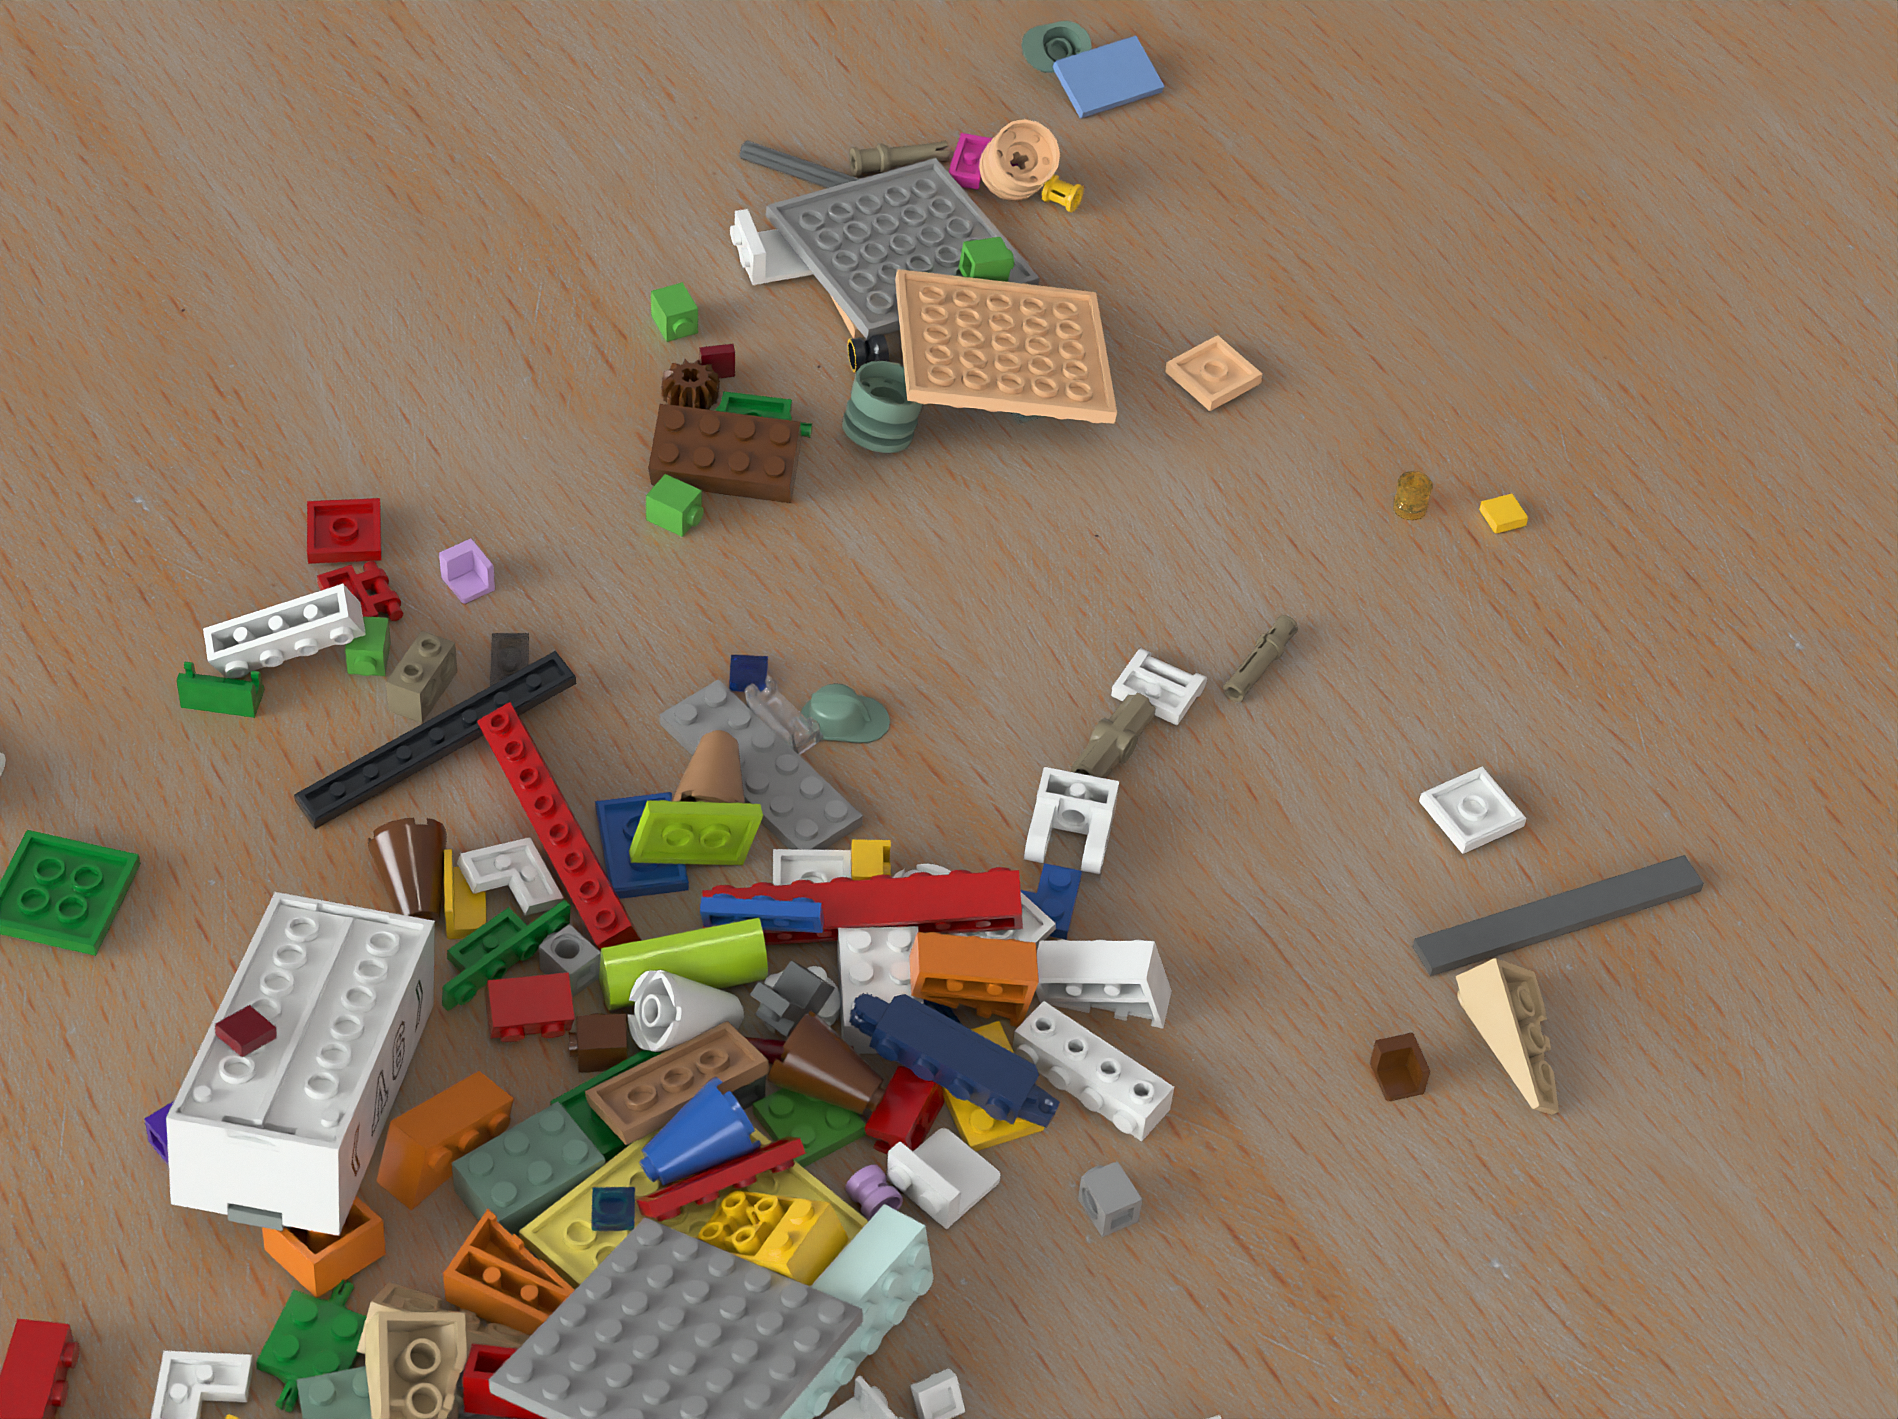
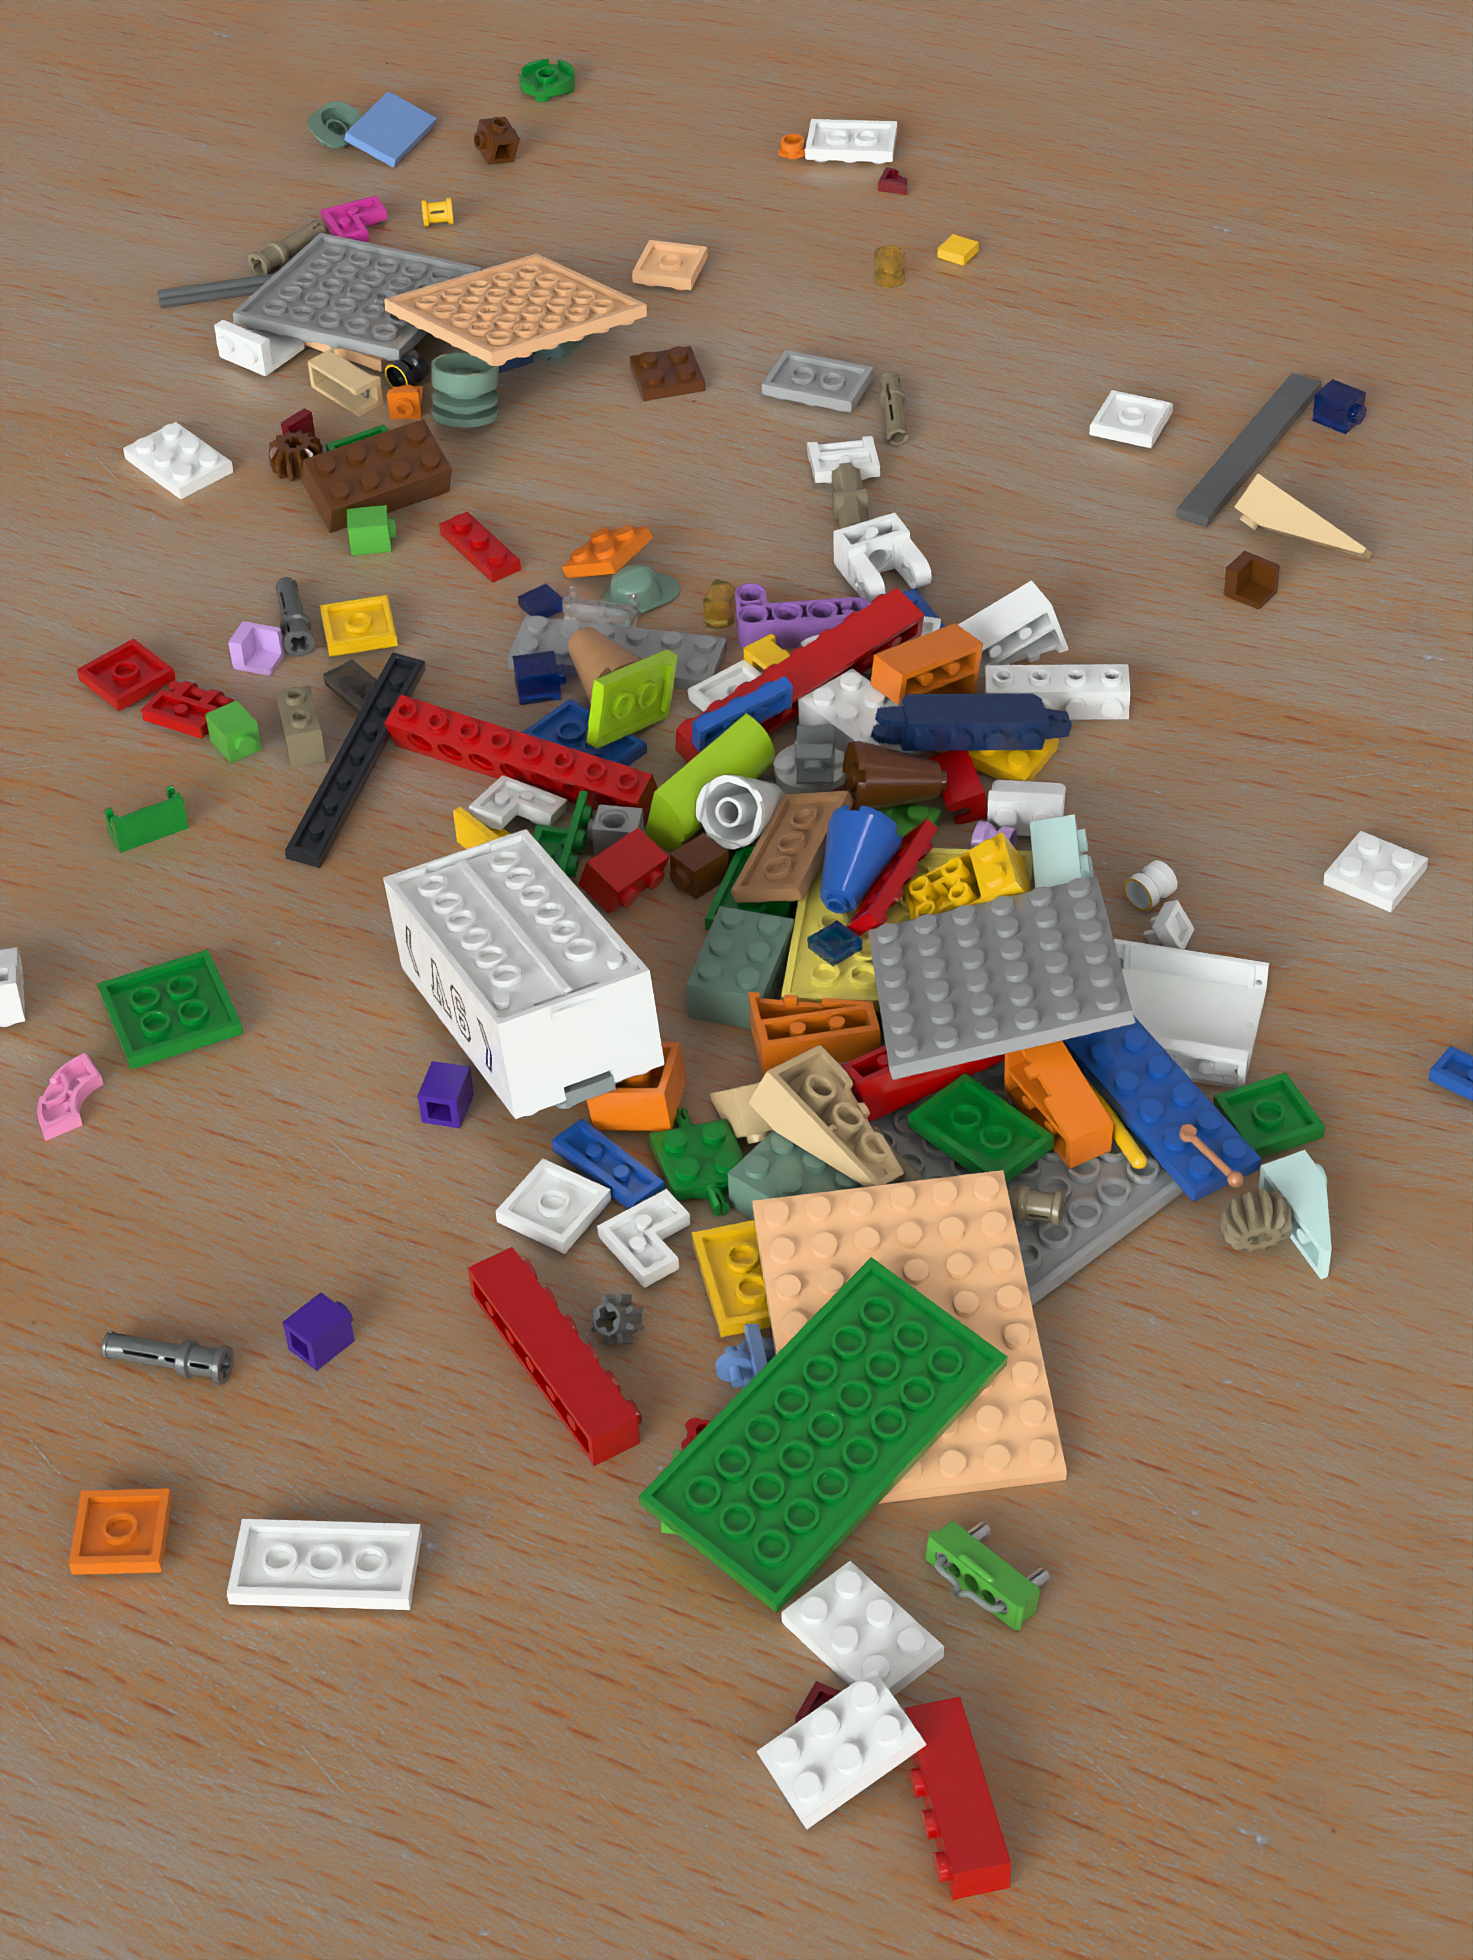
camera: 30 degrees left, 5 degrees down
(156, 1303) = (553, 1205): none -> white plate
(235, 1295) = (606, 1164): none -> blue plate
(245, 1031) = (486, 948): dark red tile -> none
(284, 632) = (169, 745): white brick -> none
(411, 865) = (428, 830): reddish brown cone -> none
(439, 1132) = (665, 957): orange wedge -> none
(523, 564) = (294, 624): none -> dark grey pin
(572, 600) = (358, 625): none -> yellow plate
(598, 331) = (178, 460): none -> white plate
(661, 752) = (538, 677): none -> clear blue brick
(674, 312) = (228, 417): bright green brick -> none
(755, 580) = (480, 547): none -> red plate
(805, 333) = (345, 383): none -> tan window
(836, 384) = (406, 402): none -> orange bracket
(845, 657) = (606, 551): none -> orange plate
(889, 777) = (719, 605): none -> clear yellow brick
(928, 838) = (788, 621): none -> medium lavender beam
(965, 1338) = (1147, 888): none -> white wheel
(986, 259) = (438, 266): bright green brick -> none
(1021, 143) = (393, 198): light nougat wheel -> none
(1097, 492) = (667, 373): none -> reddish brown plate
(1109, 1198) = (1152, 754): light grey brick -> none
(1186, 143) = (496, 140): none -> reddish brown brick
(1220, 585) = (817, 381): none -> light grey plate
(1316, 108) = (547, 79): none -> green plate
(1461, 303) = (792, 146): none -> orange plate
(1518, 398) = (892, 182): none -> dark red tile
(1522, 329) = (851, 140): none -> white plate
(1689, 924) = (1339, 406): none -> clear blue brick

